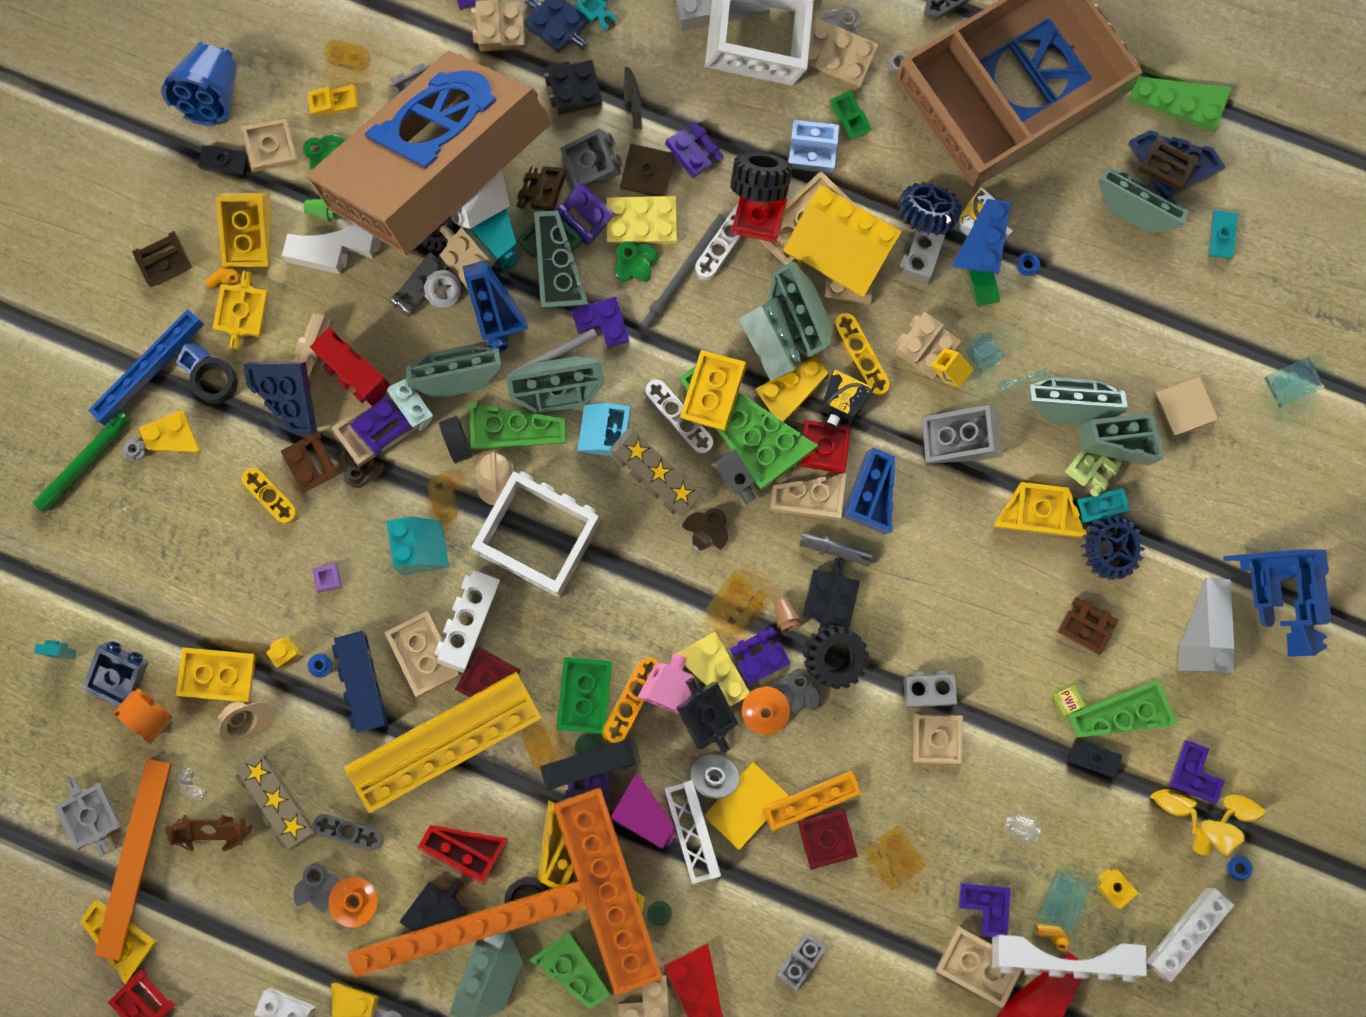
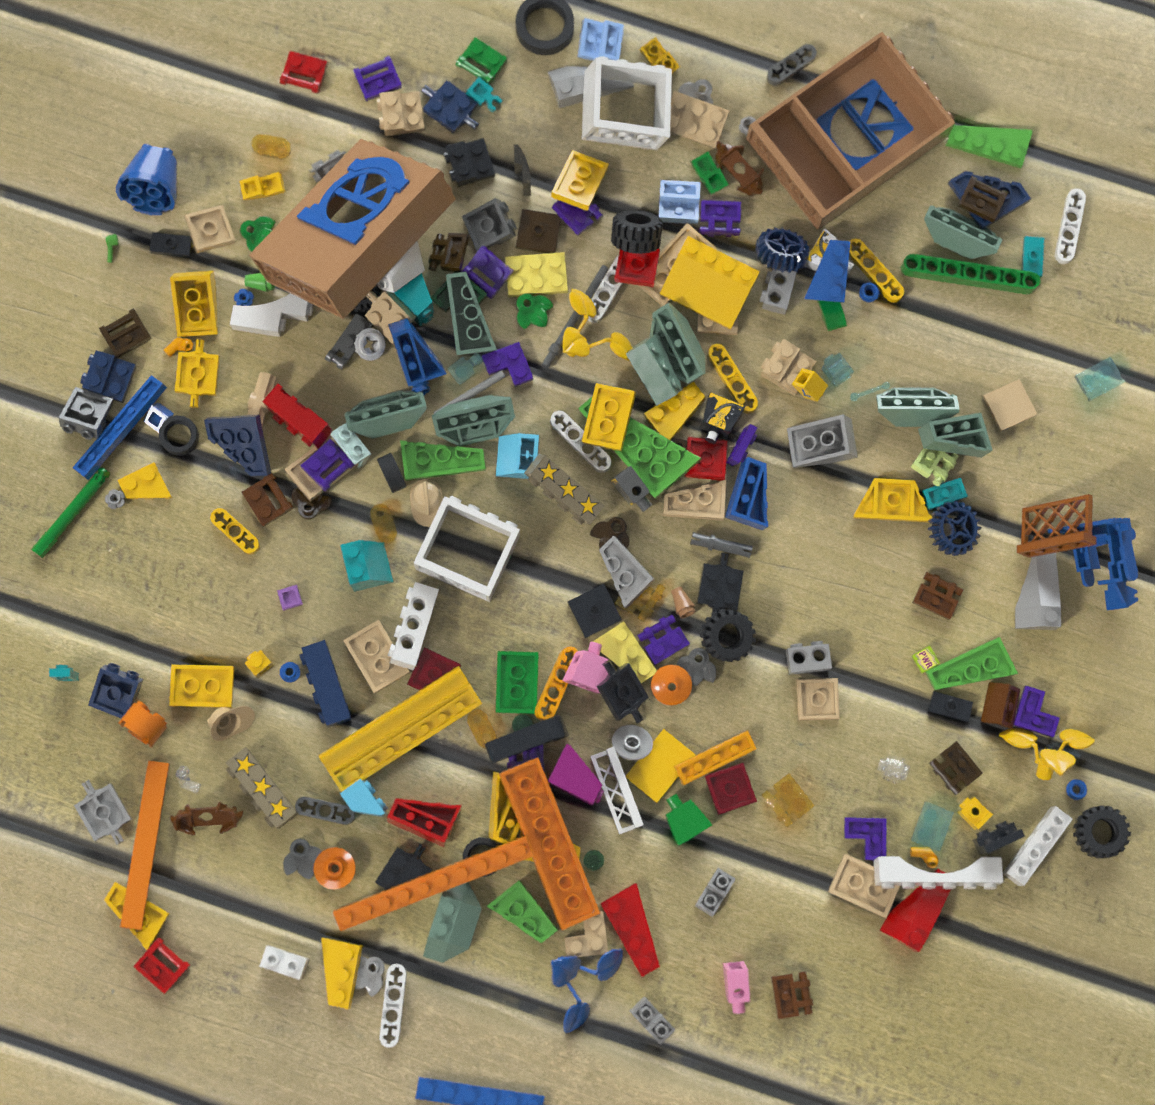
camera: 10 degrees left, 0 degrees up
(107, 348) = (85, 413): none -> dark grey plate
(138, 307) = (108, 376): none -> dark blue plate
(155, 152) = (111, 240): none -> bright green hand
(302, 220) = (244, 293): none -> blue plate
(391, 823) = (361, 799): none -> medium azure slope
(549, 325) = (463, 369): none -> clear light blue plate
(681, 303) = (576, 344): none -> yellow plant
(681, 617) = (594, 611): none -> black plate
(699, 114) = (579, 180): none -> yellow plate
(722, 574) = (627, 573): none -> light grey wing
(771, 873) = (685, 820): none -> green torso
(860, 161) = (720, 211): none -> dark purple plate
(863, 442) = (739, 451): none -> dark purple plate
(897, 127) = (729, 156): none -> reddish brown piece
(1040, 237) = (876, 269): none -> yellow beam
(1103, 828) = (960, 763): none -> dark brown plate
(1142, 922) = (1003, 835): none -> black plate
(1154, 760) = (1000, 704): none -> reddish brown panel
(1159, 247) = (979, 270): none -> green beam
(1238, 573) = (1056, 543): none -> dark orange fence
(1272, 203) = (1067, 225): none -> white beam
(1287, 928) = (1118, 827): none -> black tyre

